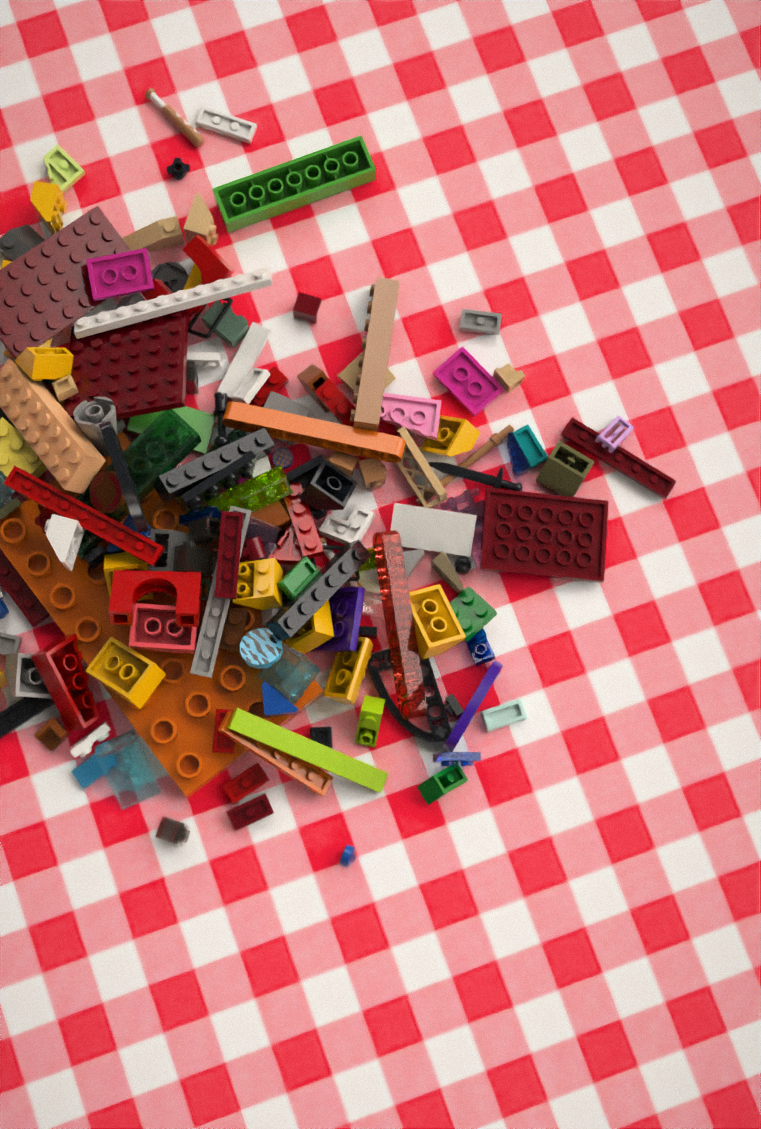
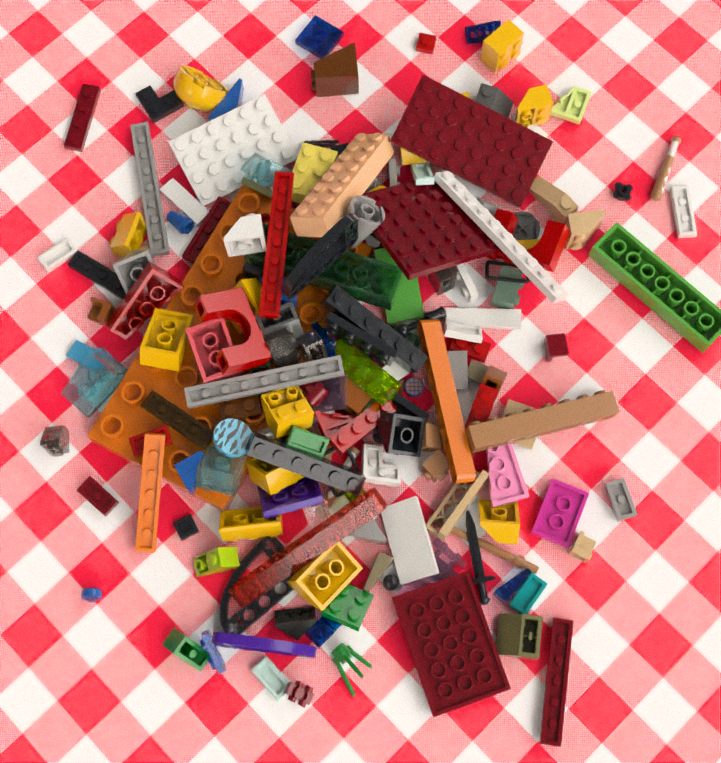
camera: 70 degrees right, 5 degrees down
(45, 363) = (396, 162): yellow slope -> none
(65, 387) = (383, 185): tan tile -> none
(72, 343) = (422, 174): none -> light aqua tile
(84, 745) = (99, 338): white plate -> none
(106, 492) = (299, 249): reddish brown tile -> none
(120, 274) = (502, 184): dark pink plate -> none
(215, 695) = (178, 419): none -> dark brown tile
(228, 555) = (295, 372): dark red plate -> none
(246, 783) = (120, 481): red plate -> none
(296, 391) = (476, 371): none -> dark tan tile
(307, 750) = (163, 518): lime tile -> none
(368, 632) = (292, 523): black tile -> none
(452, 706) = (259, 627): dark grey plate -> none
(460, 669) = (295, 621): none -> pearl dark grey slope
(511, 637) = (342, 654): none -> green plant
(528, 694) = (296, 691): none -> piece
(607, 442) = (563, 663): lavender tile -> none

